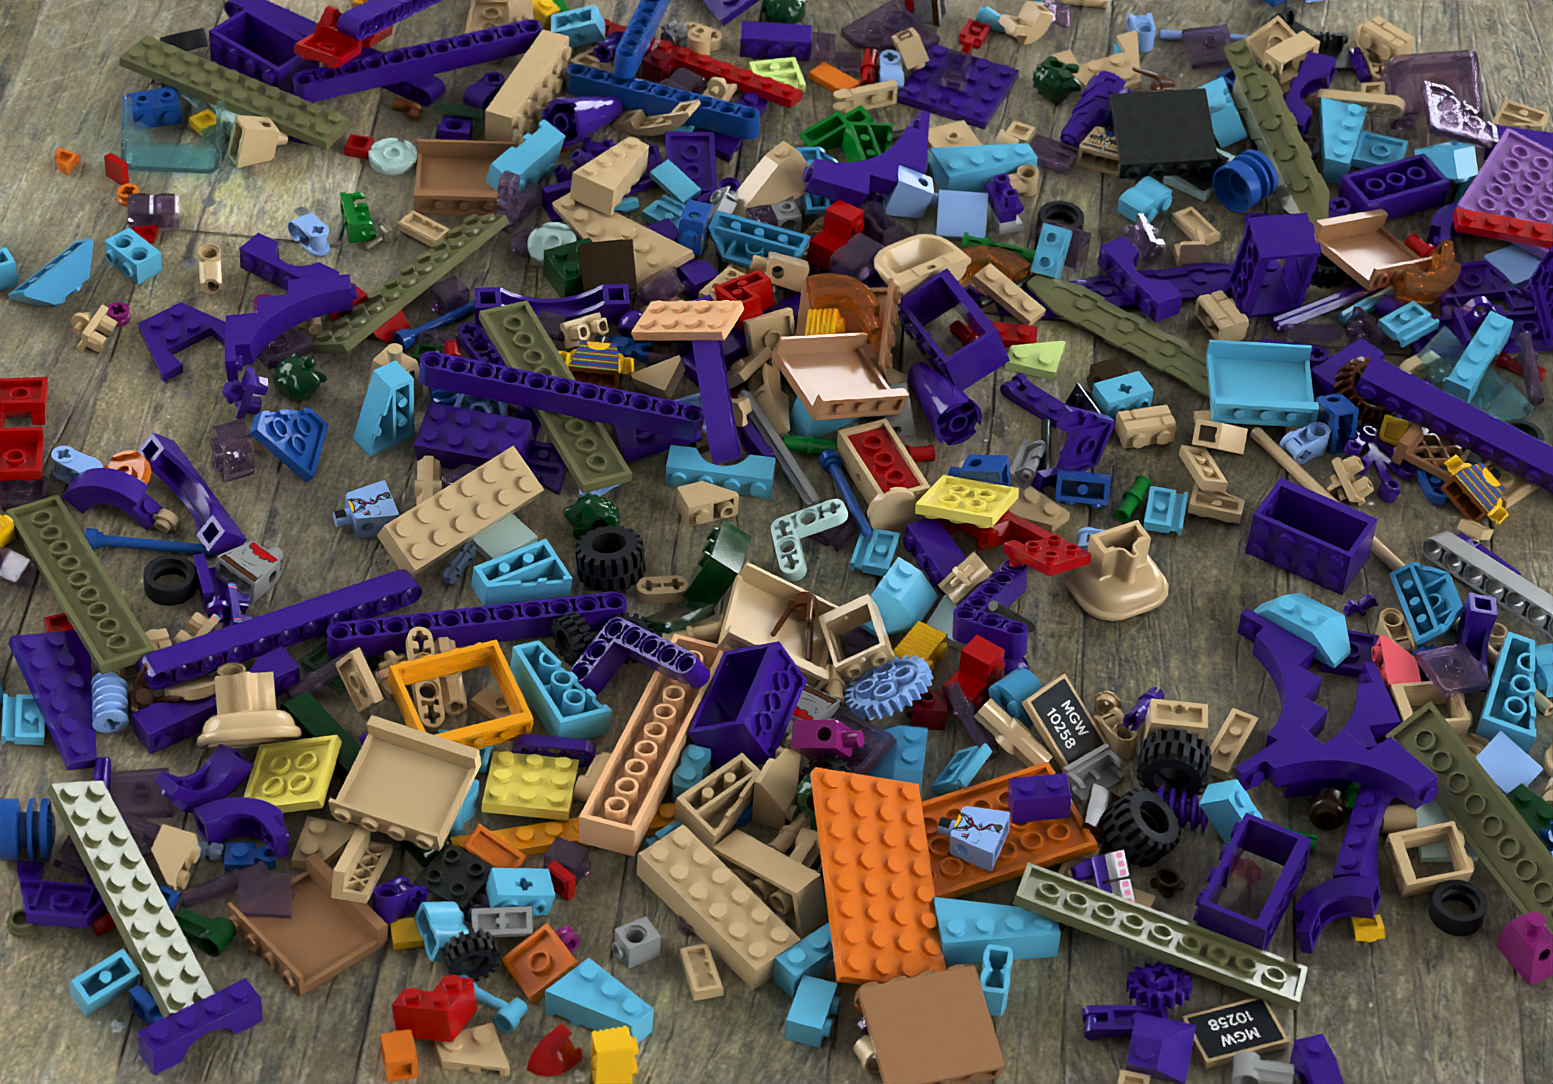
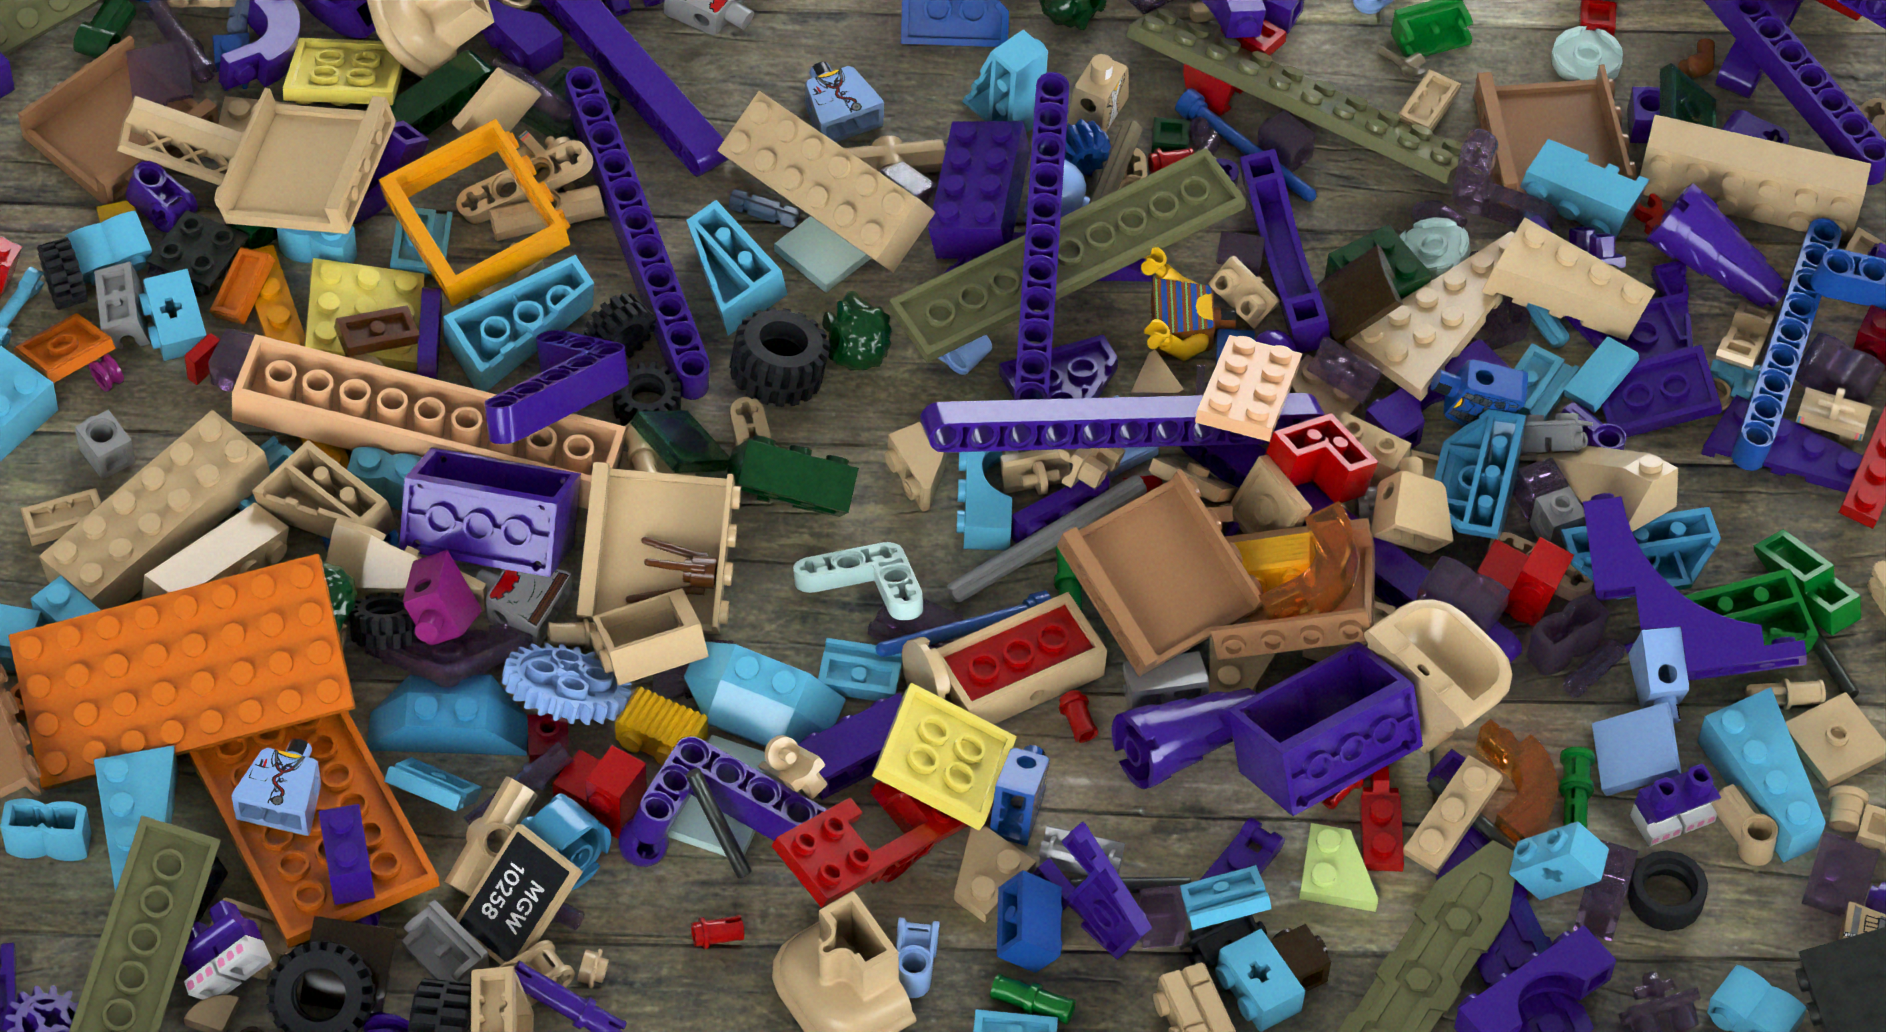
camera: 85 degrees right, 10 degrees up
(564, 765) = (376, 331): none -> reddish brown plate
(1074, 390) = (1225, 897): none -> medium azure plate
(1080, 644) = (717, 931): none -> red pin

